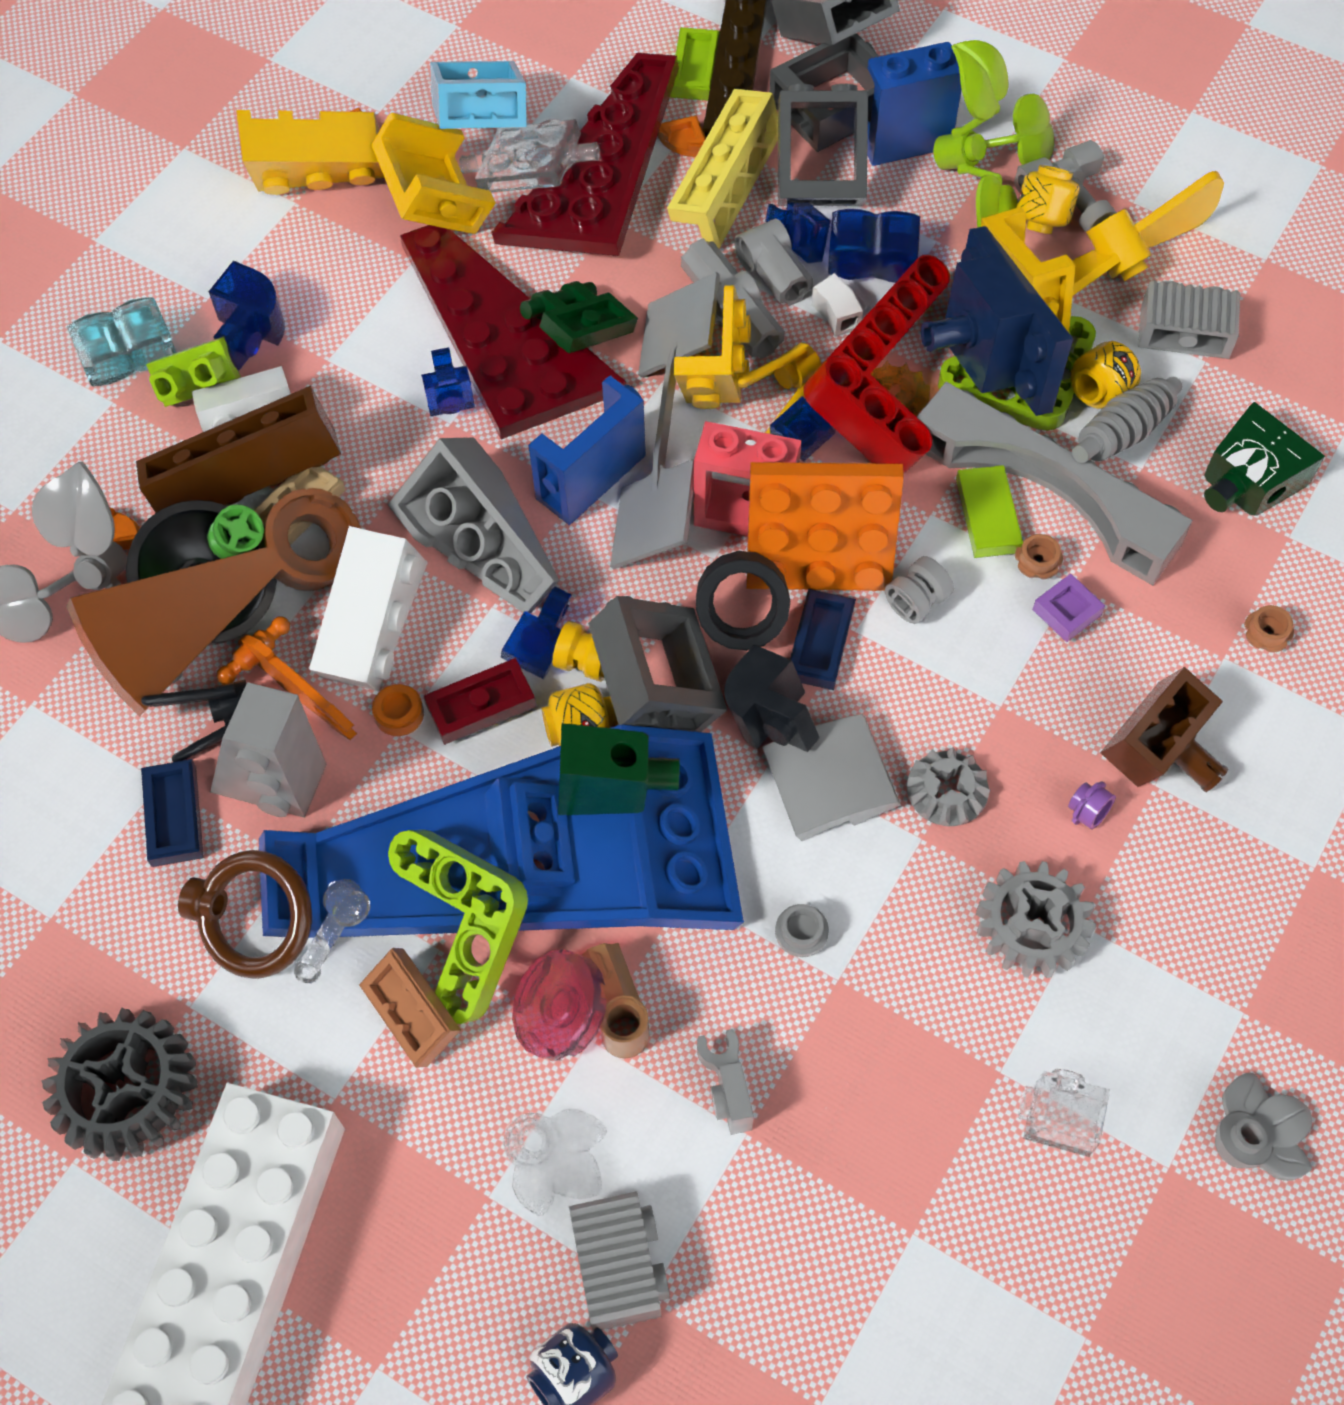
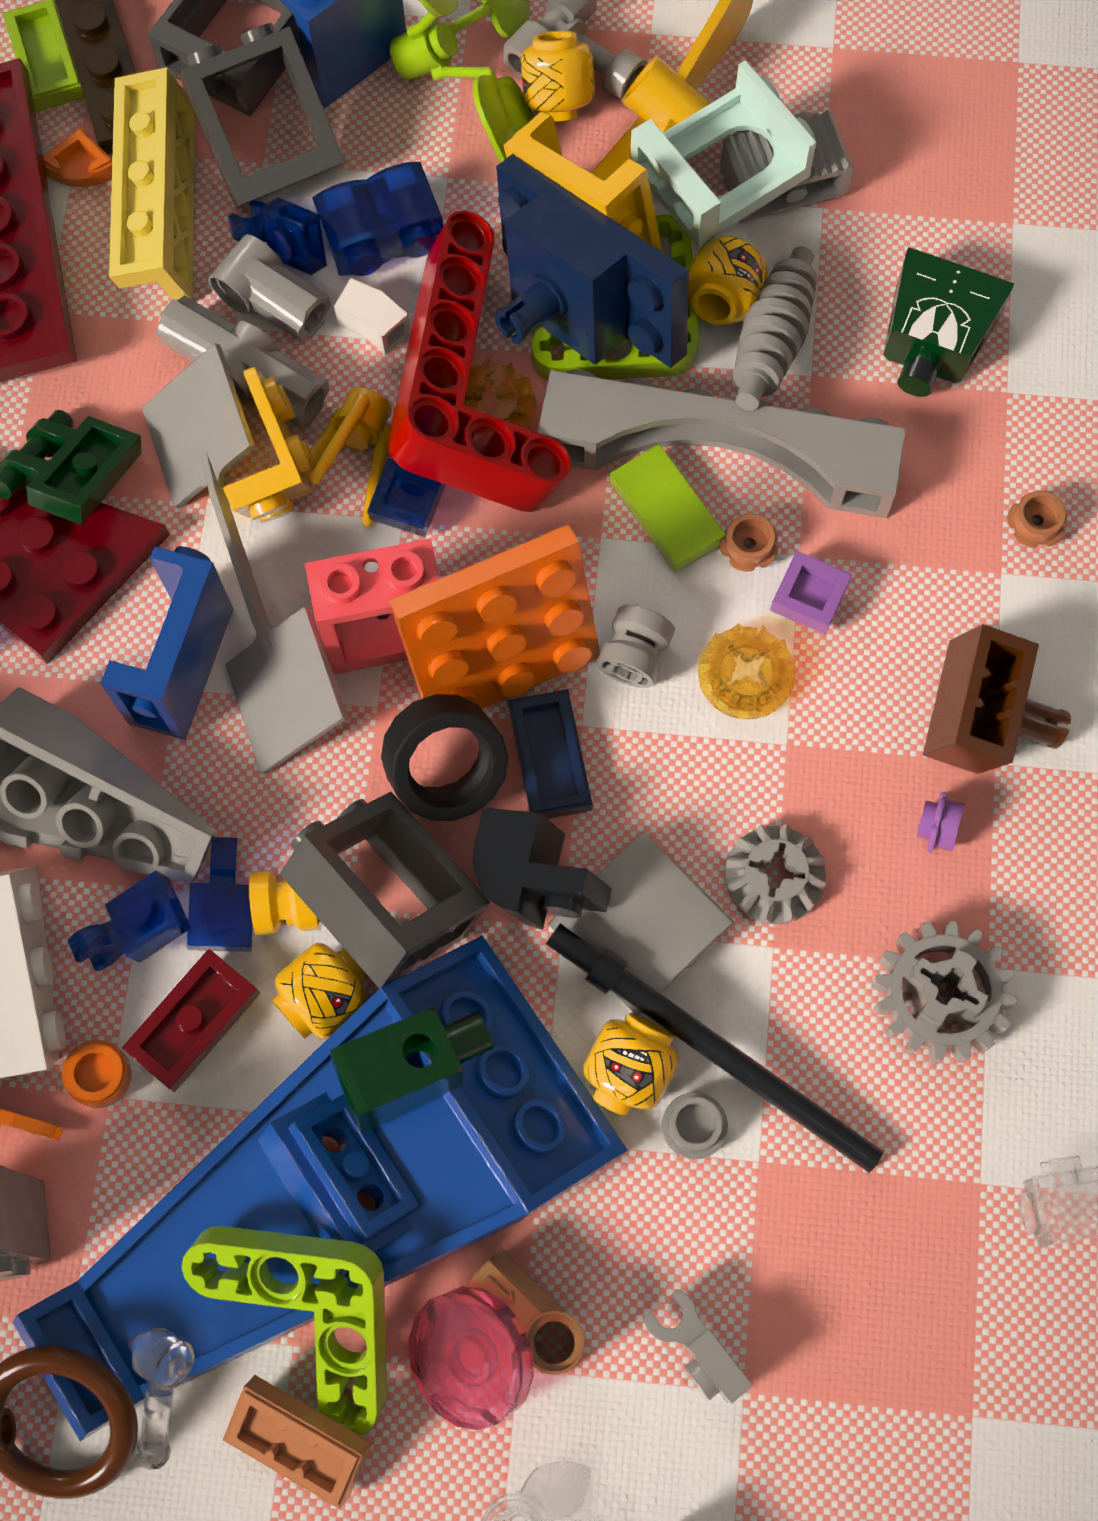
camera: 25 degrees left, 10 degrees up
(478, 622) = (140, 924): none -> clear blue plate
(775, 864) = (631, 1064): none -> yellow head
(790, 795) = (608, 972): none -> black bar
(983, 657) = (745, 697): none -> clear yellow gear
(1178, 265) = (748, 107): none -> light aqua panel

